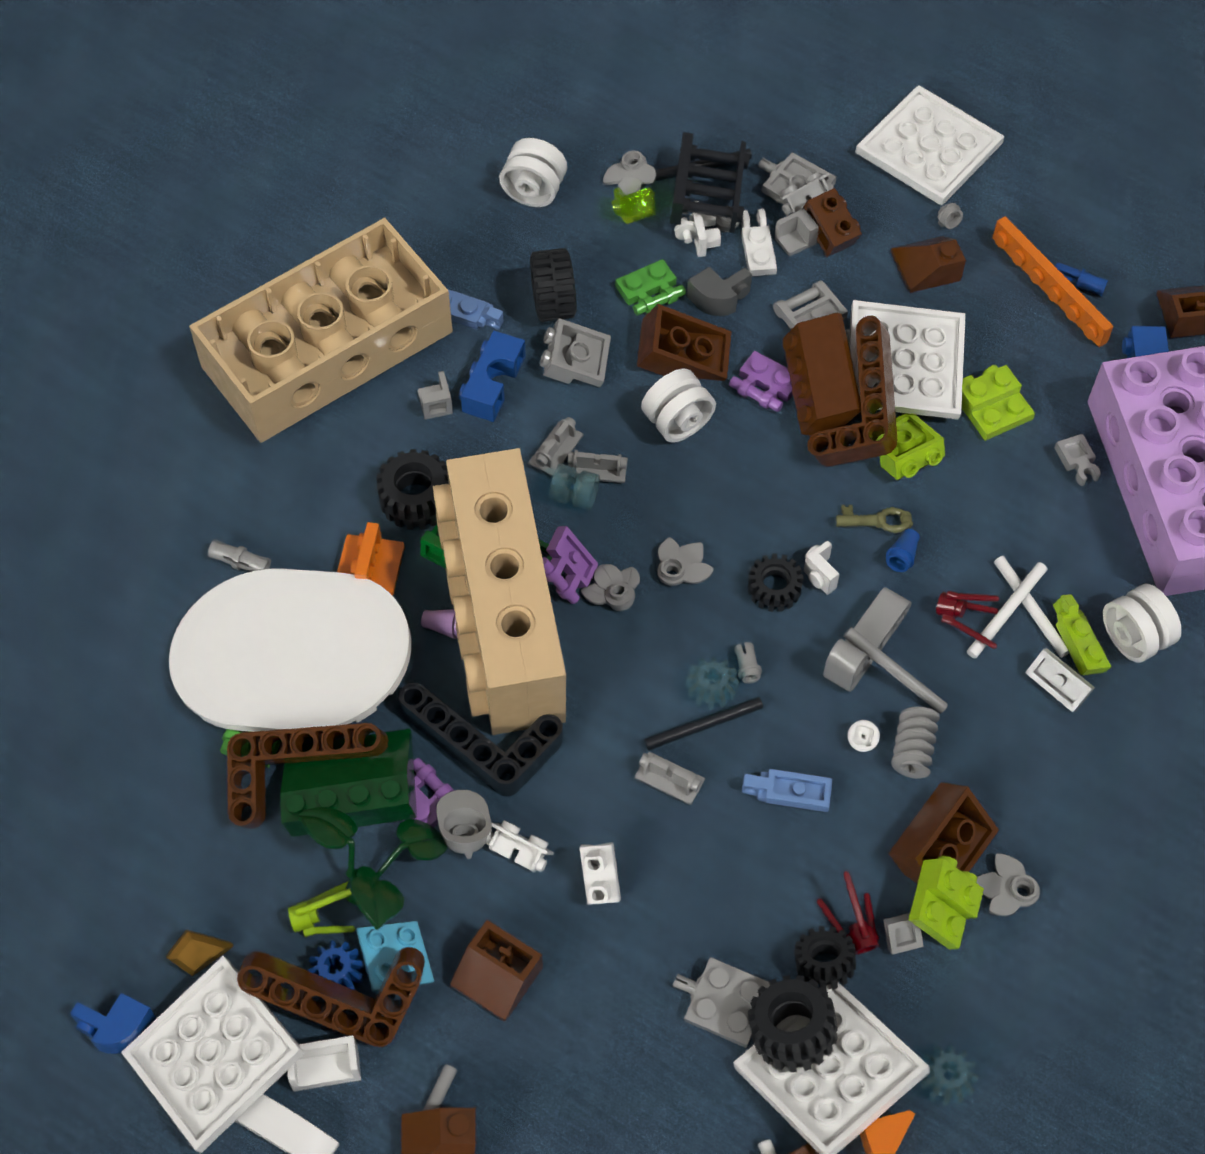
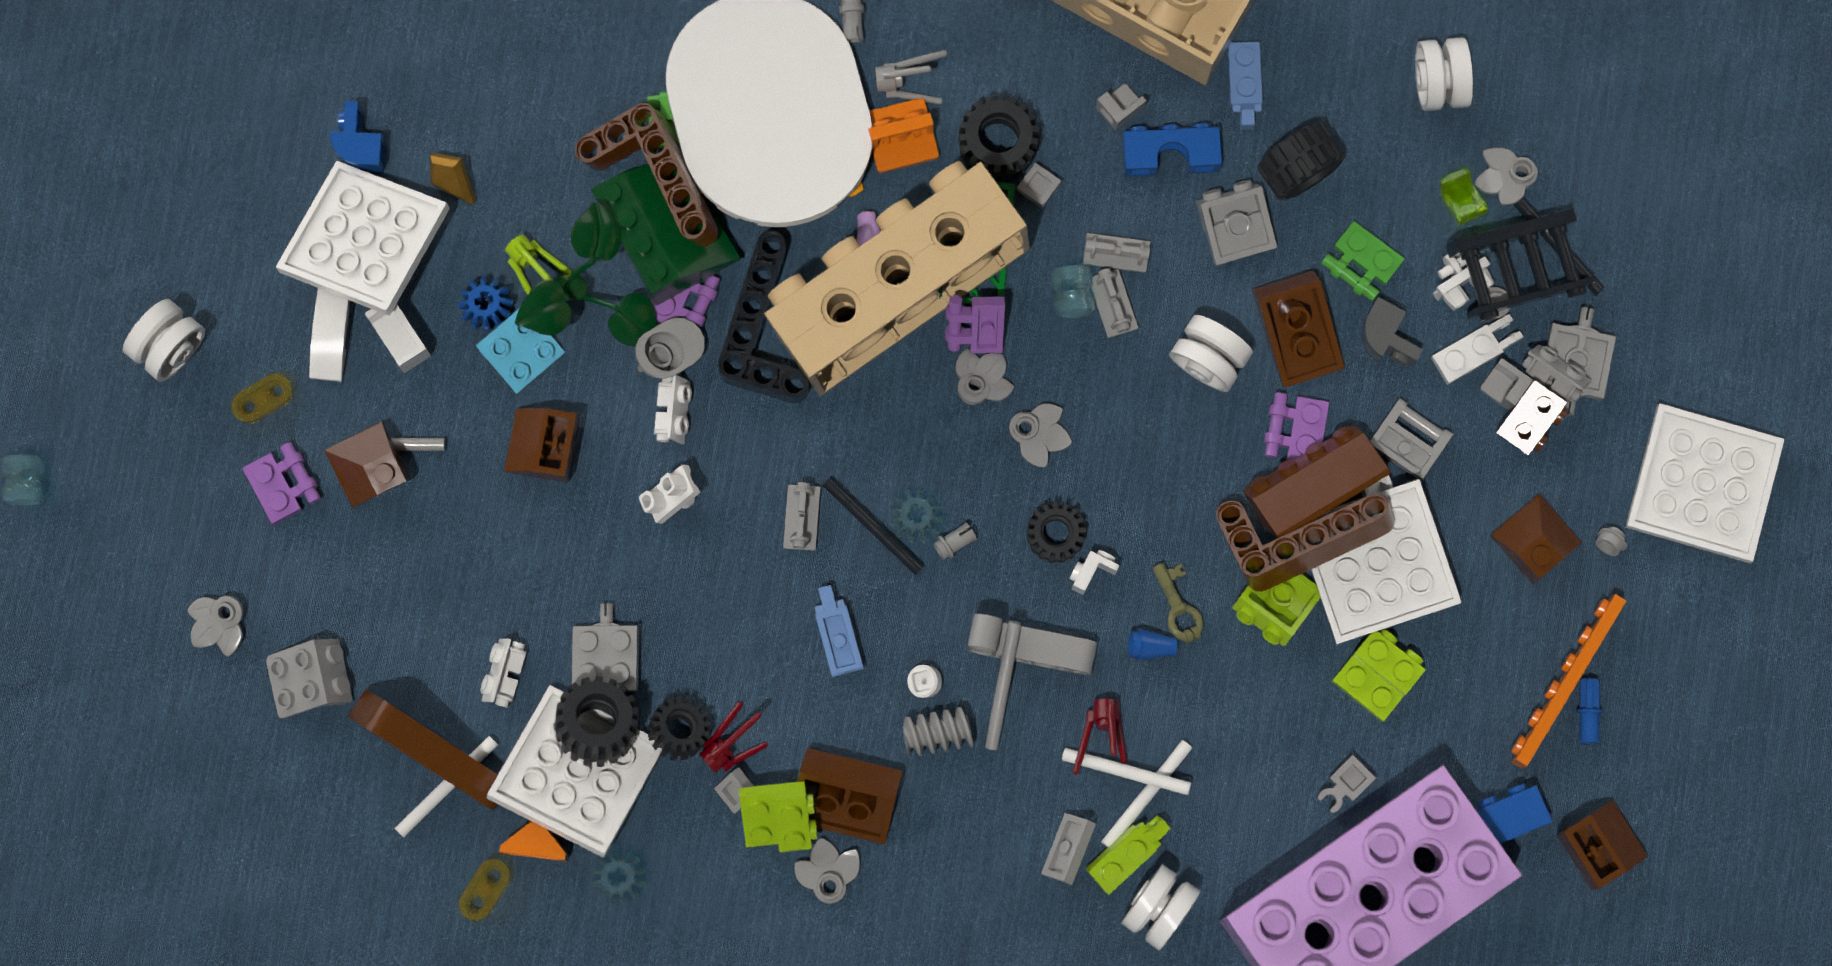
camera: 65 degrees right, 20 degrees up
(315, 550) = (891, 77): none -> light grey plant
(336, 996) = (447, 315): reddish brown beam -> none
(688, 1096) = (497, 683): none -> white hinge

